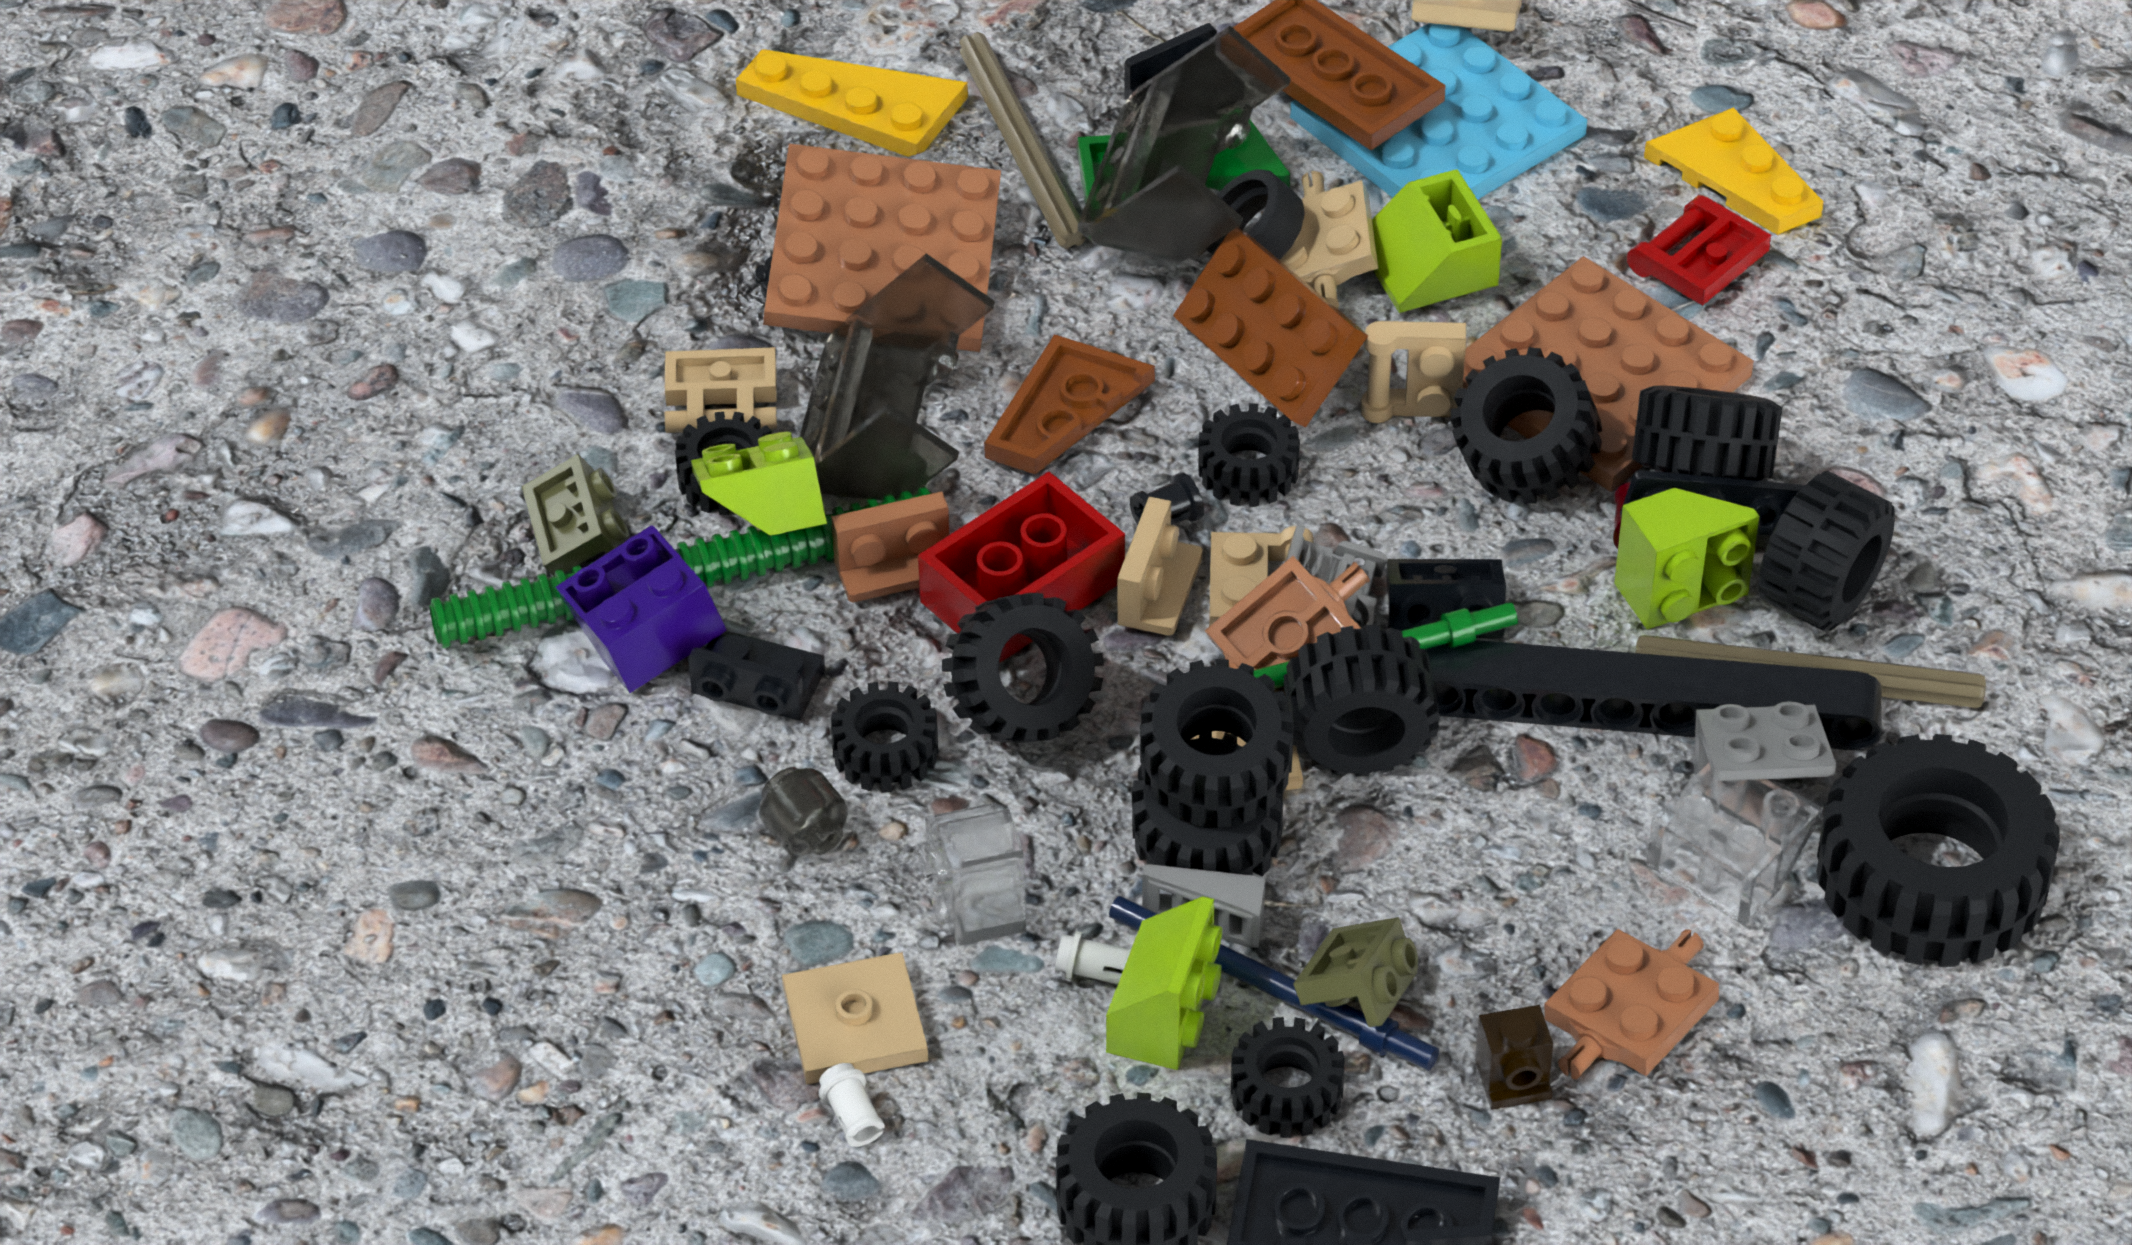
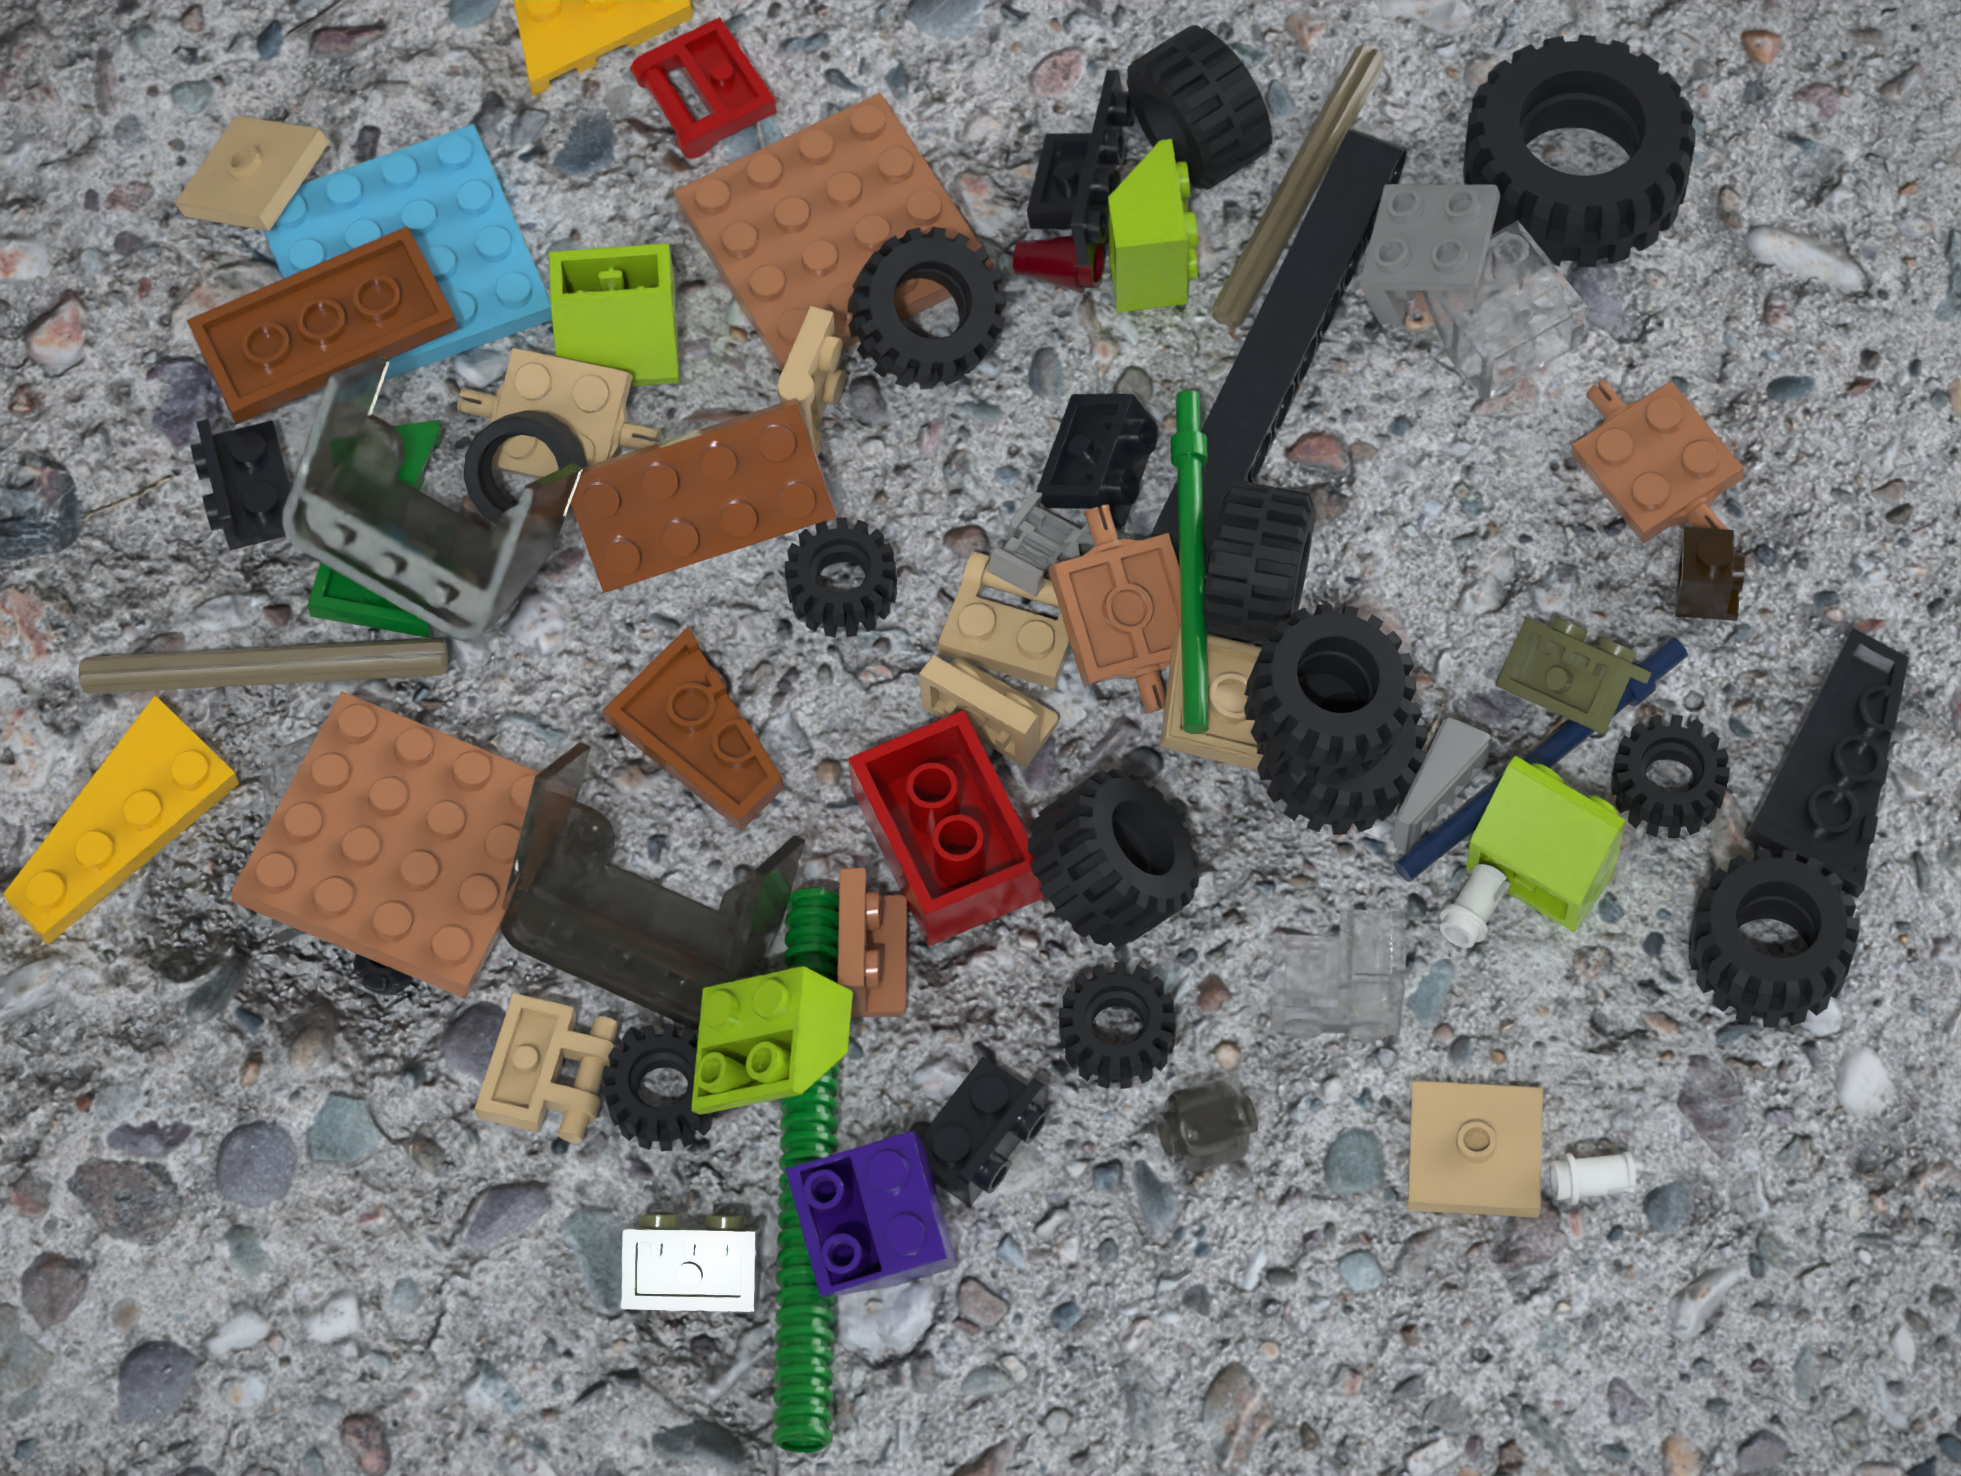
camera: 70 degrees left, 15 degrees up
(1184, 498) = (888, 673): black bush -> none
(1706, 432) = (1007, 154): black tyre -> none

